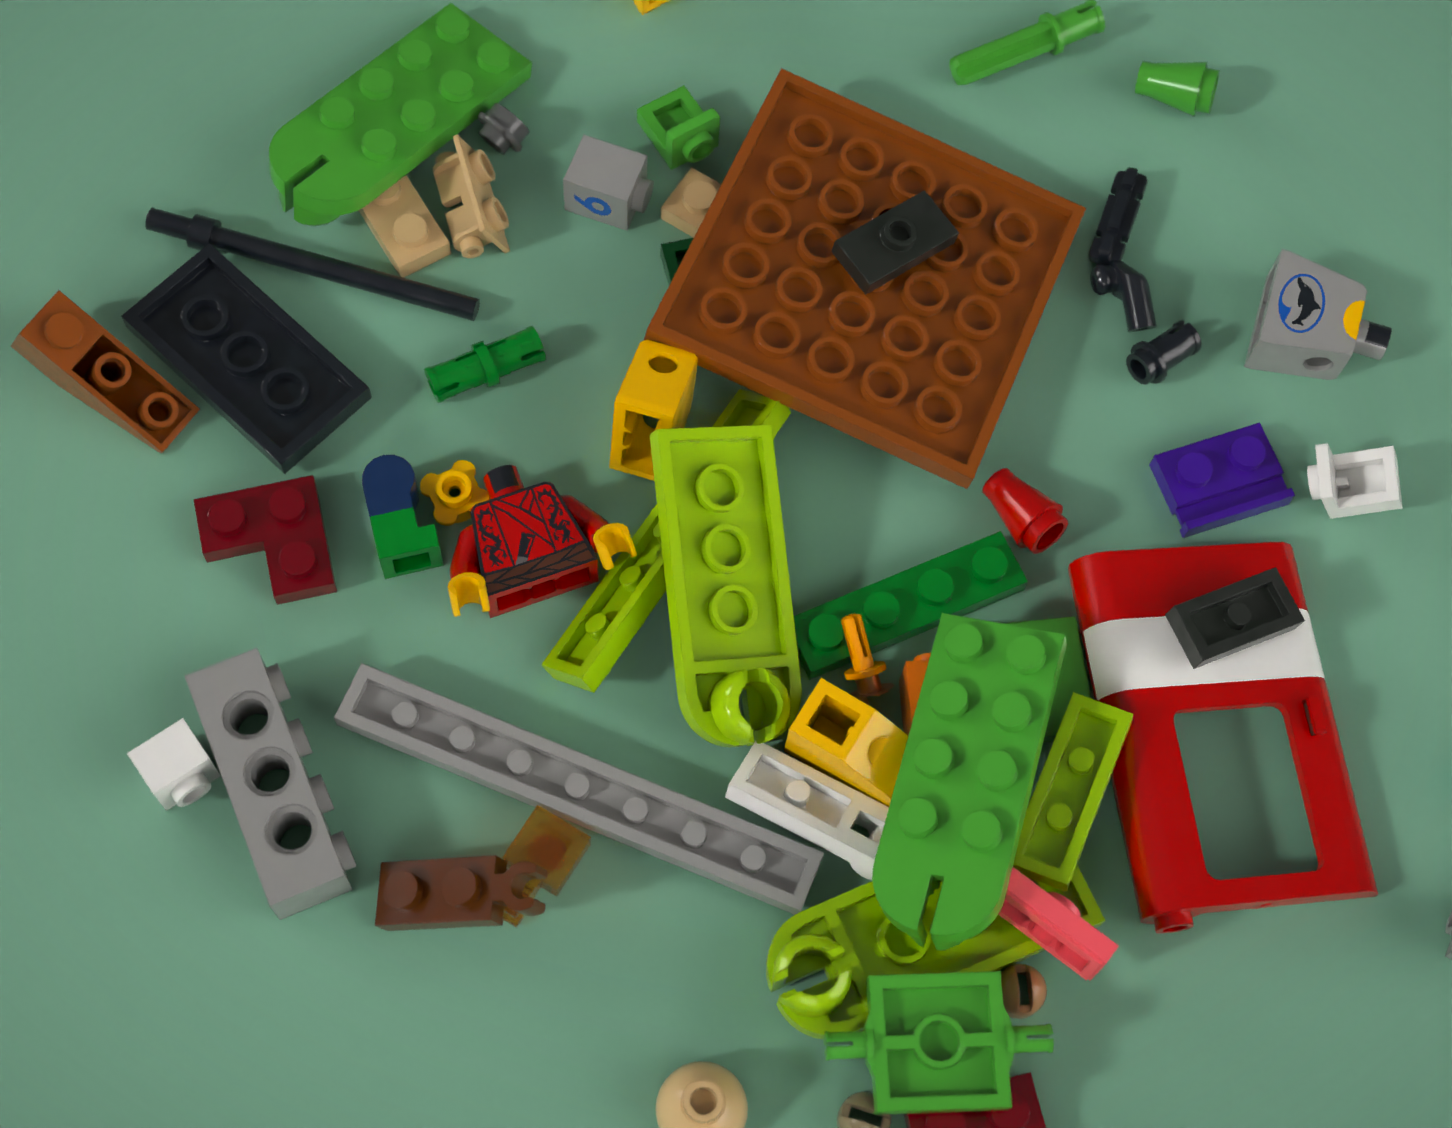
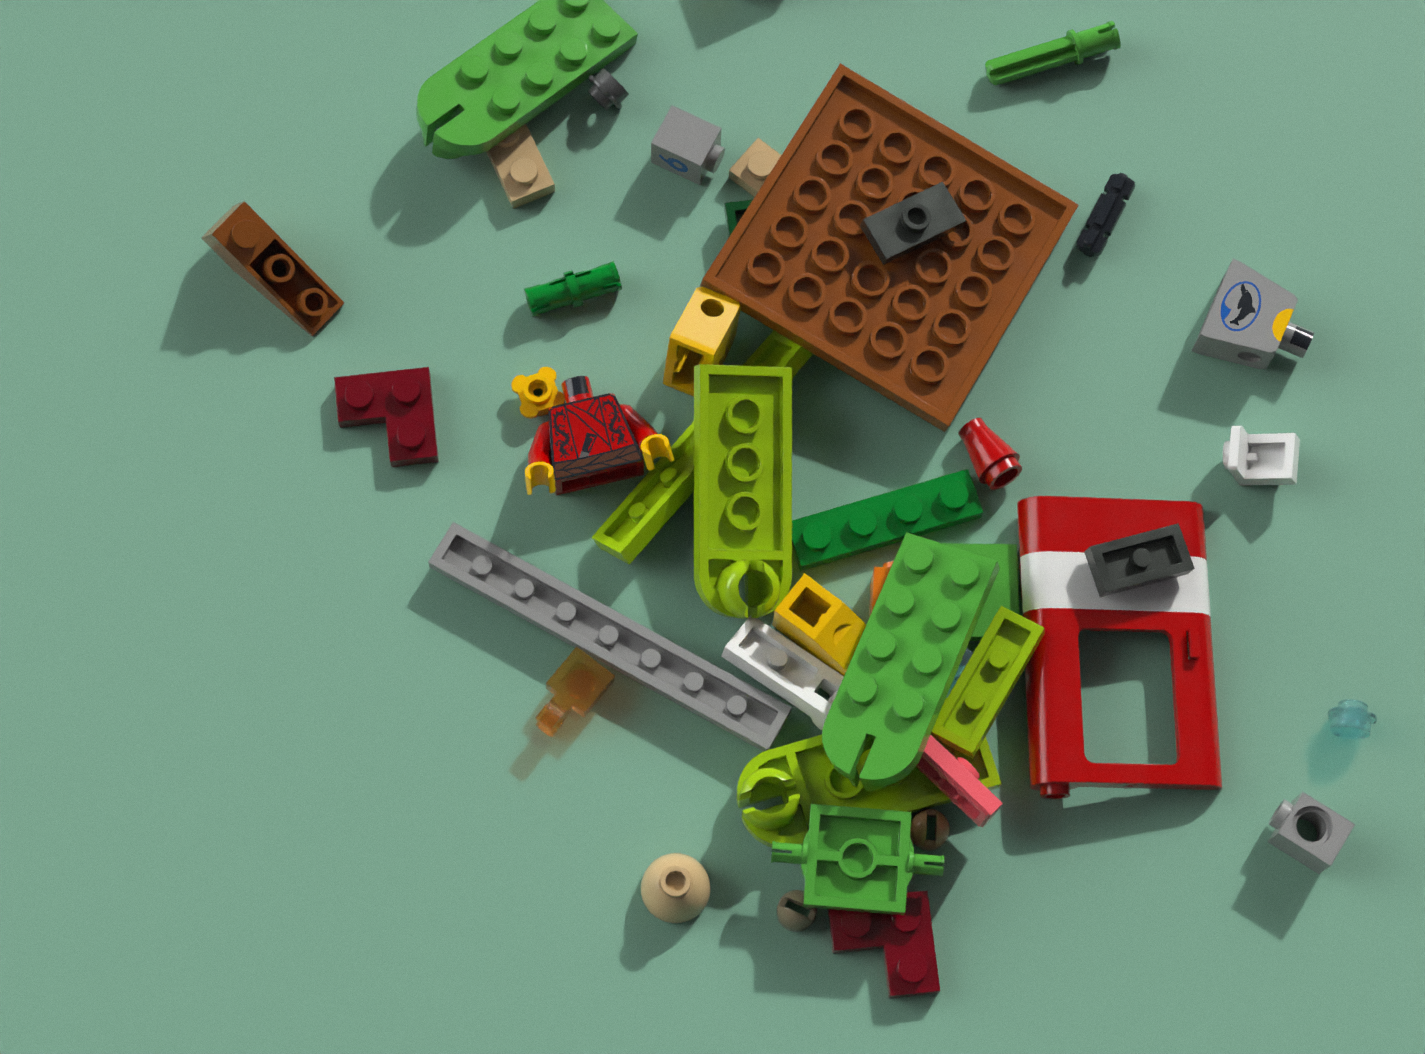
camera: 10 degrees right, 5 degrees up
(175, 766) = (305, 586): white plate -> none
(204, 230) = (361, 158): black bar -> none
(224, 699) = (345, 538): light grey brick -> none
(247, 357) = (384, 265): black plate -> none
(391, 503) = (487, 395): leg -> none
(453, 892) = (506, 706): reddish brown plate -> none
(467, 179) = (574, 130): tan hinge -> none
(680, 127) = (752, 102): bright green bracket -> none
(864, 669) = (843, 569): light orange piece -> none
(1130, 288) = (1105, 276): black arm -> none
(1154, 358) = (1115, 338): black pin -> none
(1179, 84) = (1177, 103): bright green cone -> none
(1221, 479) = (1155, 444): dark purple plate -> none

